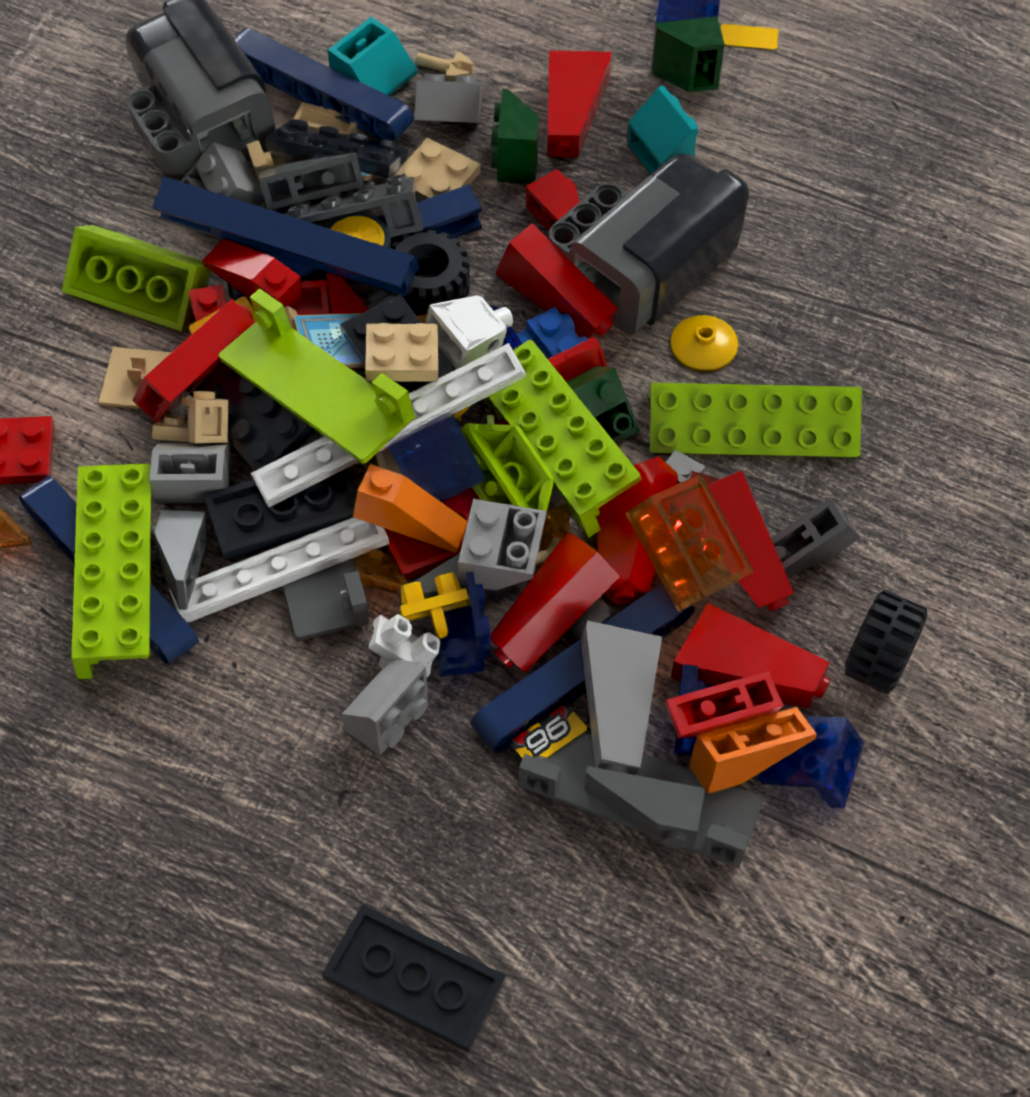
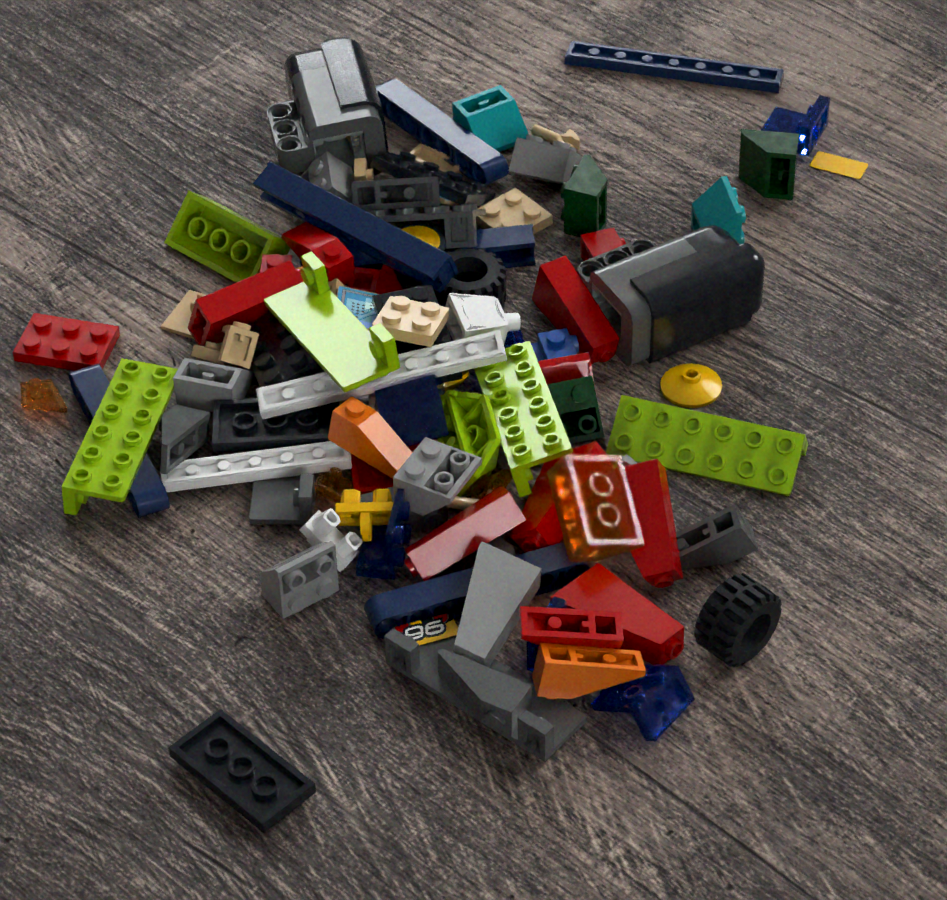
camera: 20 degrees right, 15 degrees down
(574, 94) = (655, 180): red slope -> none

